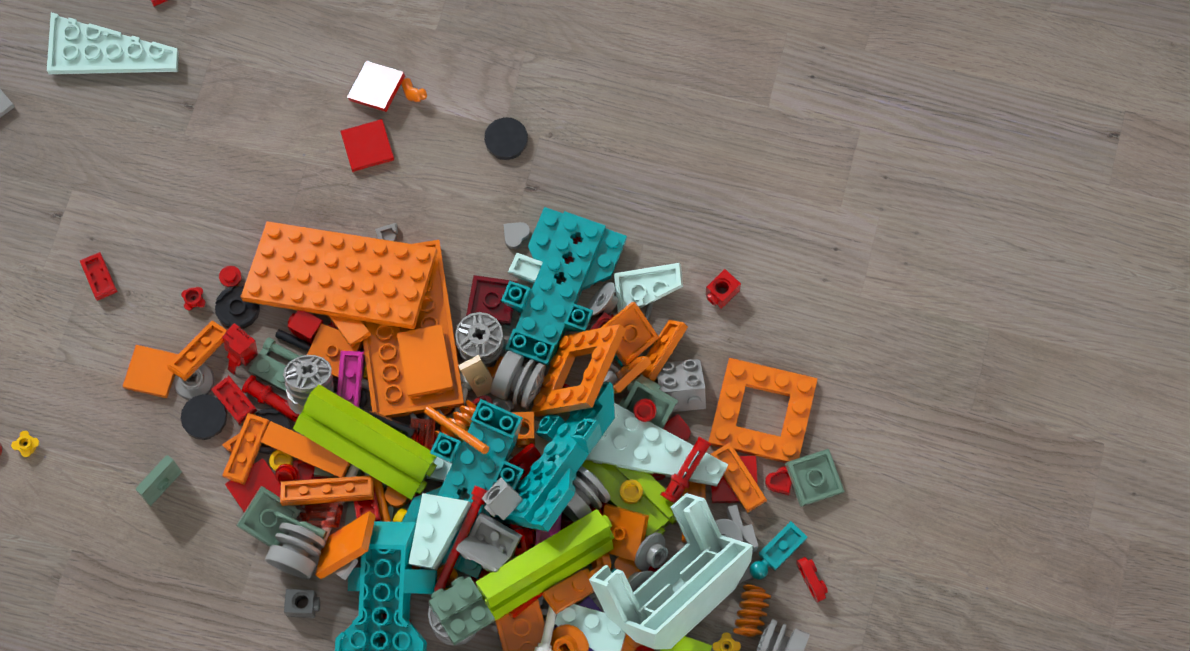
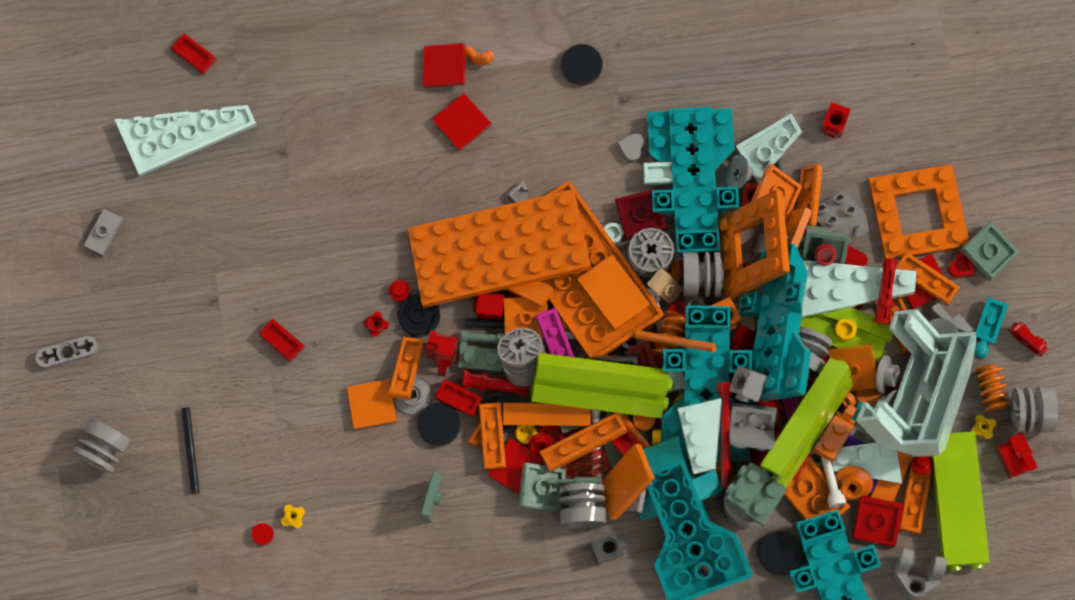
camera: 25 degrees left, 5 degrees up
(458, 307) = (615, 232): none -> light aqua tile

